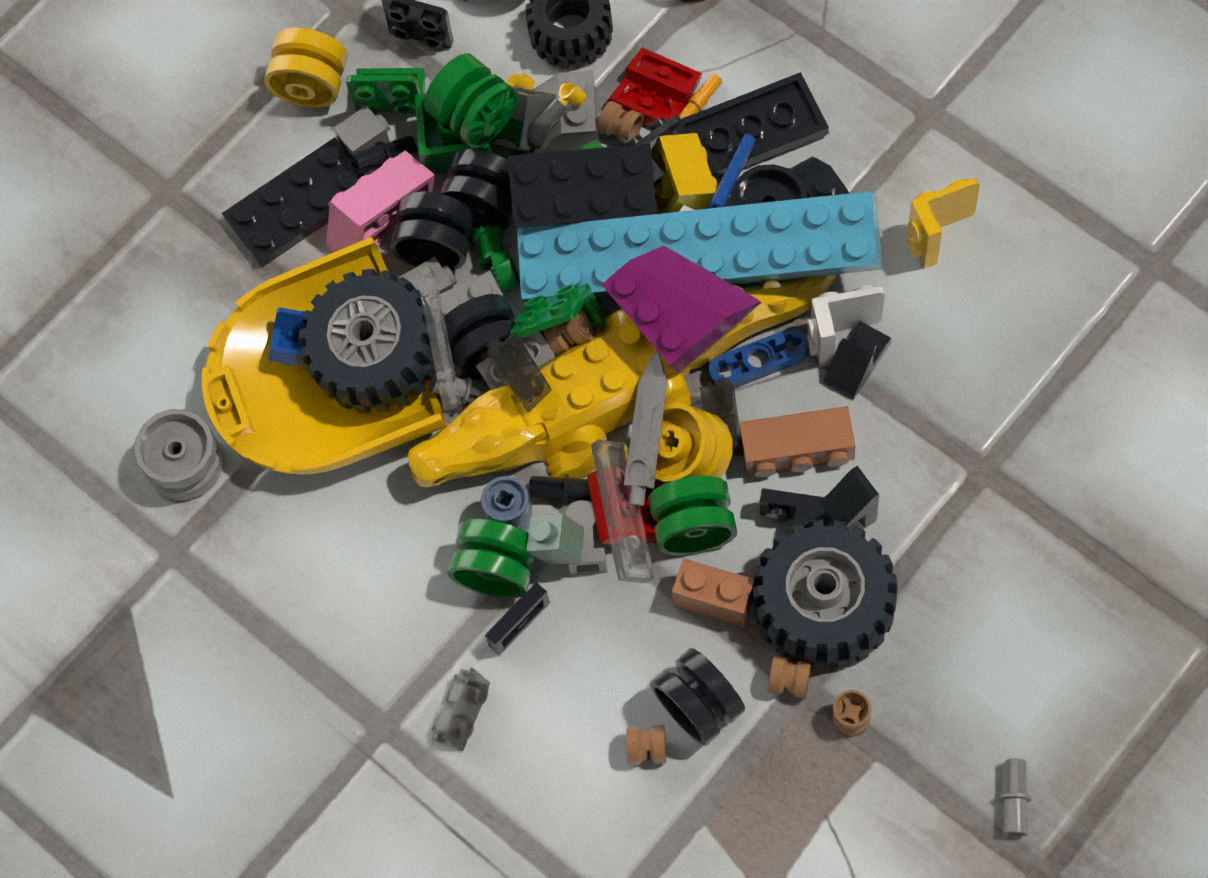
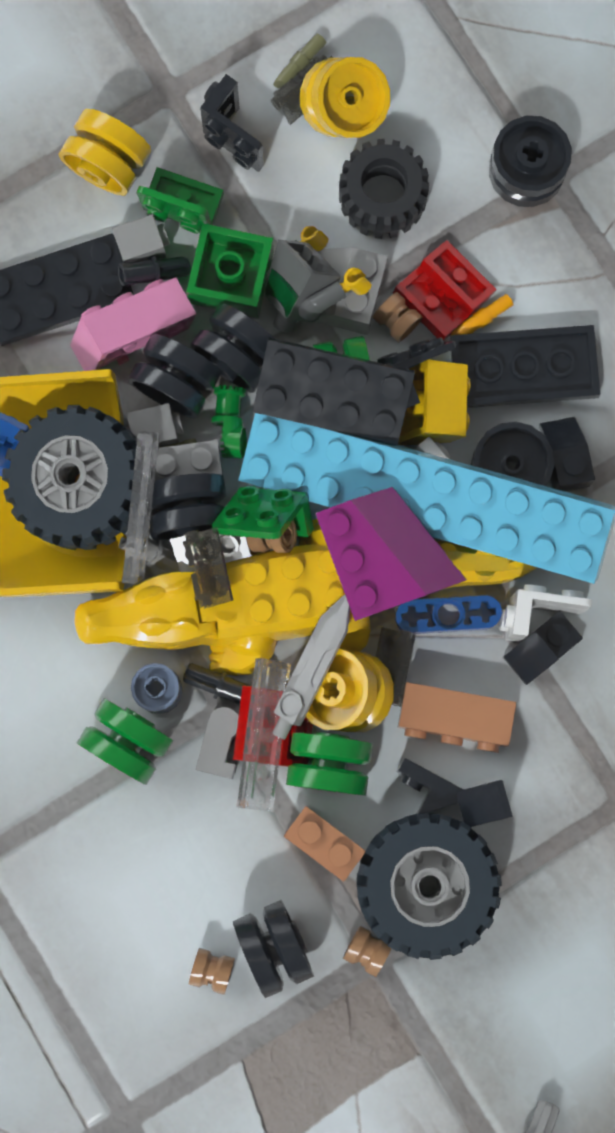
camera: 10 degrees right, 15 degrees up
(468, 694) = (41, 887): clear smoke hinge -> none
(470, 100) = (252, 259): green wheel -> none
(517, 619) = (131, 803): black tile -> none
(555, 539) = (189, 747): sand green brick -> none
(733, 171) = (487, 419): blue piece -> none
(851, 705) = (418, 1008): medium nougat wheel -> none

